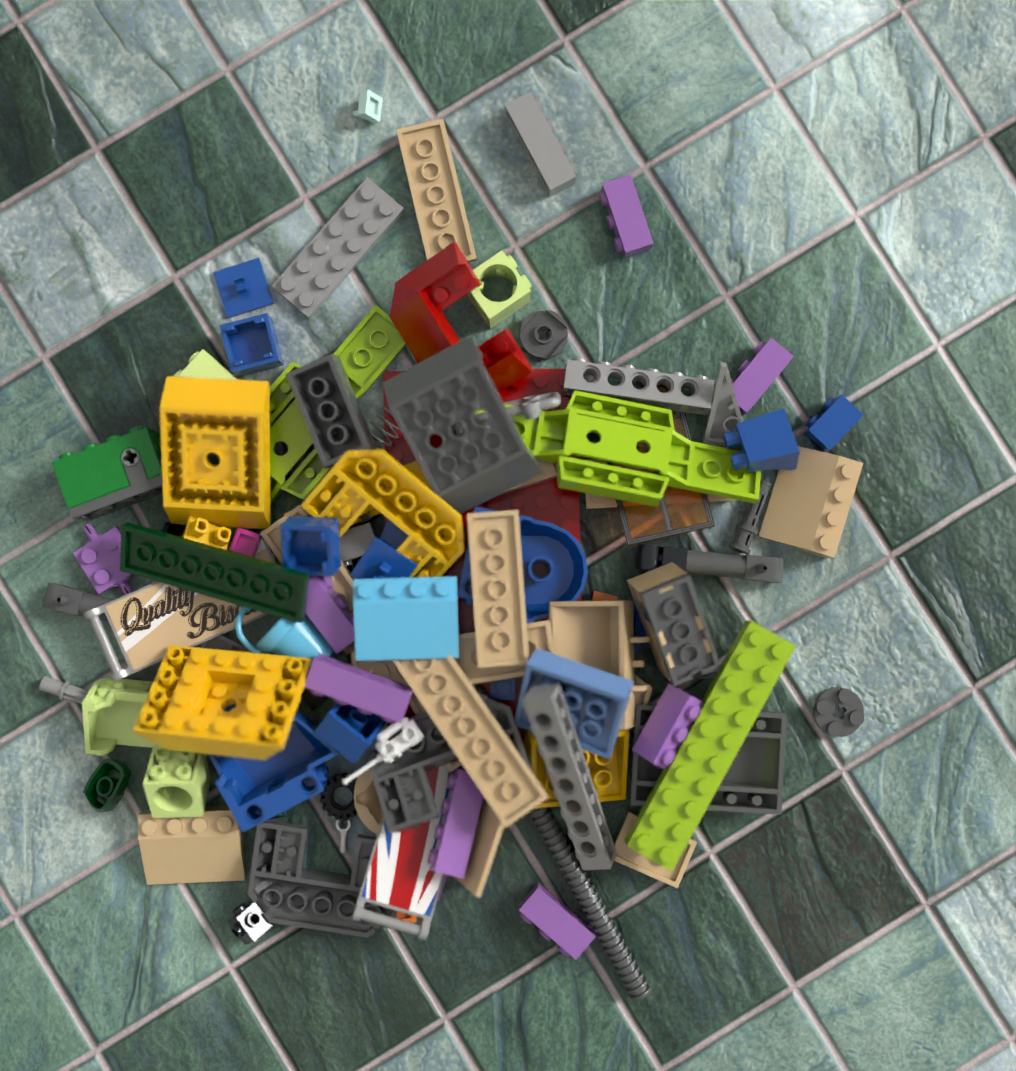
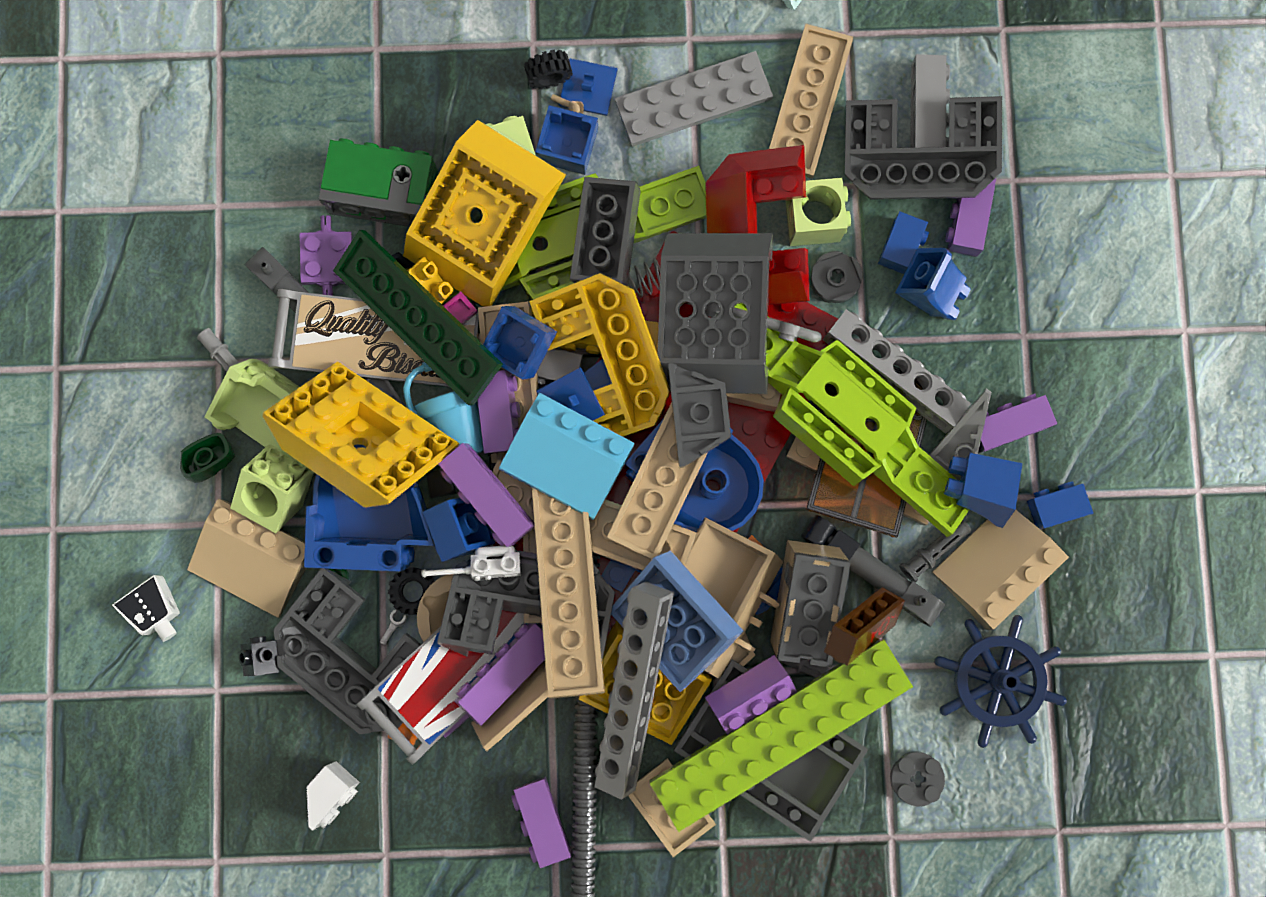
camera: 25 degrees right, 5 degrees down
(135, 934) = (150, 608): none -> torso
(200, 294) = (548, 69): none -> black tyre
(242, 313) = (575, 106): none -> tan hand
(369, 997) = (327, 792): none -> white slope
(495, 522) = (698, 413): none -> dark grey wing
(583, 273) = (903, 242): none -> blue brick
(592, 191) = (927, 172): none -> dark grey slope
(627, 295) = (934, 283): none -> blue hips
(729, 618) = (864, 626): none -> reddish brown brick
(862, 595) = (1000, 681): none -> dark blue piece

